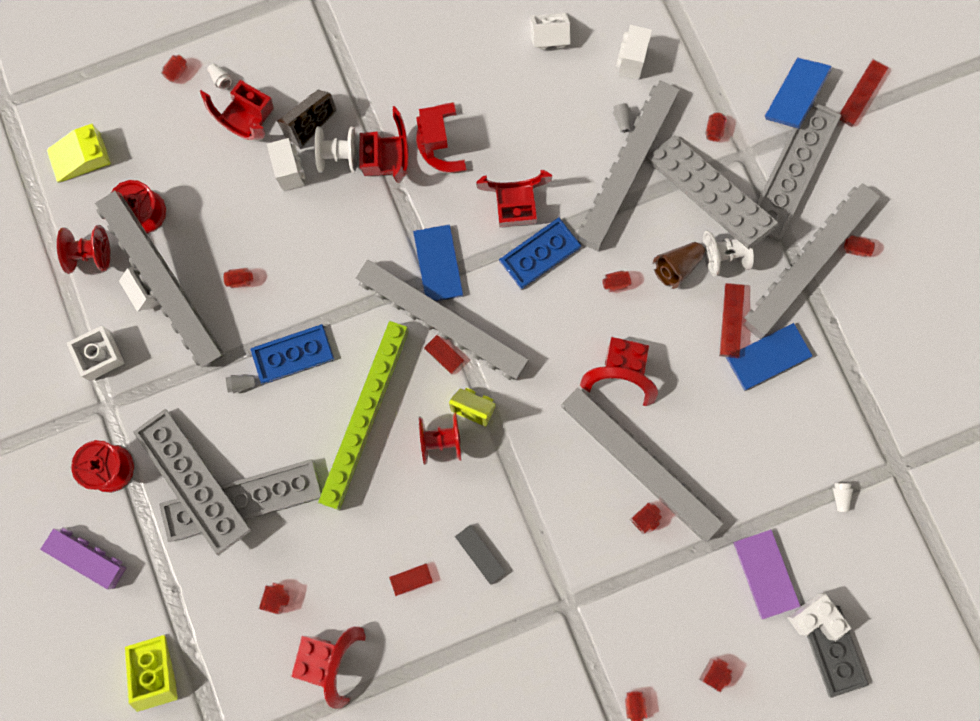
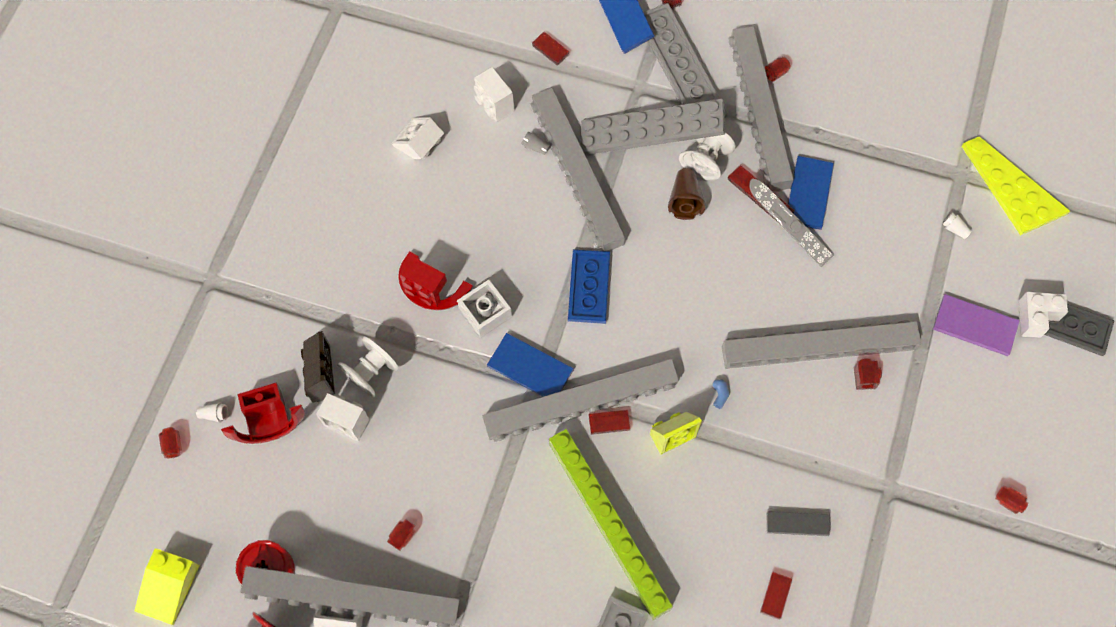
camera: 50 degrees left, 10 degrees down
(237, 383) = (492, 607): light grey cone -> none
(292, 354) = (505, 543): blue tile -> none
(385, 154) = (406, 333): red piece -> none
(439, 438) = (681, 475): red piece -> none
(453, 192) = (484, 308): none -> white brick
(515, 199) = (532, 267): red piece -> none
(538, 419) = (723, 393): none -> medium blue arm
(616, 281) = (661, 248): clear red brick -> none
(627, 362) = (733, 290): red piece -> none
(715, 127) = (601, 88): clear red brick -> none
(716, 674) = (1029, 420): clear red brick -> none
(717, 60) = (550, 48): none -> clear red tile
(725, 361) = (790, 222): none -> light grey piece
(920, 523) = (1018, 195): none -> neon yellow wing

